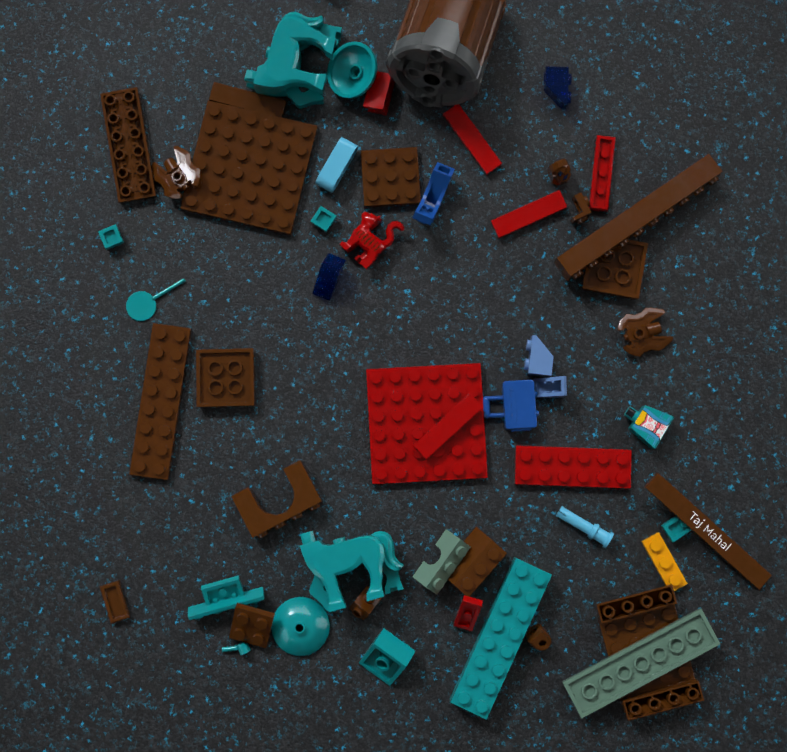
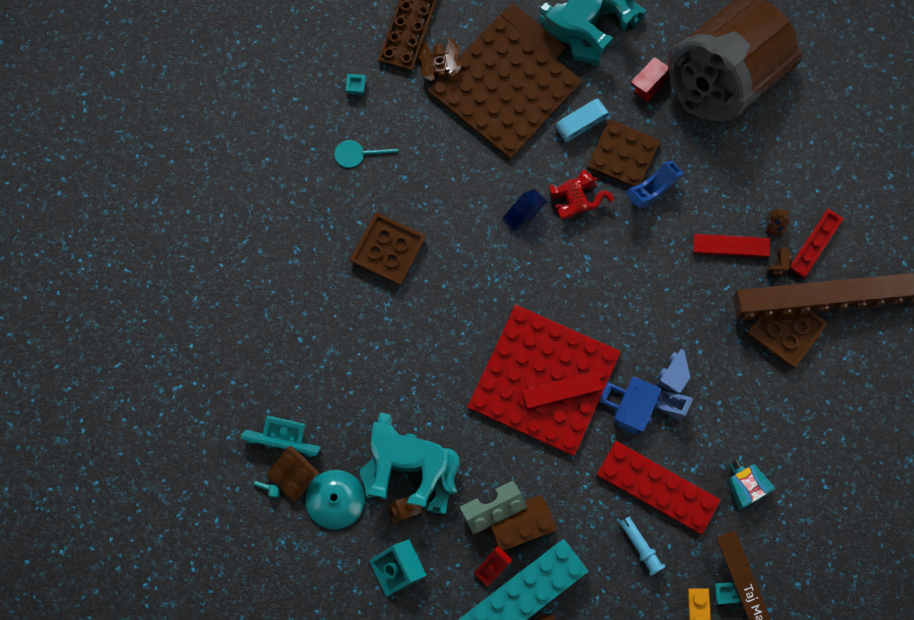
camera: 30 degrees right, 10 degrees down
(115, 601) = (185, 391): reddish brown tile -> none
(160, 401) = (320, 241): reddish brown plate -> none
(260, 521) = (399, 388): reddish brown arch -> none
(323, 219) = (546, 159): teal plate -> none
(344, 70) = (637, 48): teal dish -> none
(472, 139) = (713, 158): red tile -> none
(556, 85) = (812, 147): clear blue slope -> none
(642, 333) = (783, 401): reddish brown piece -> none

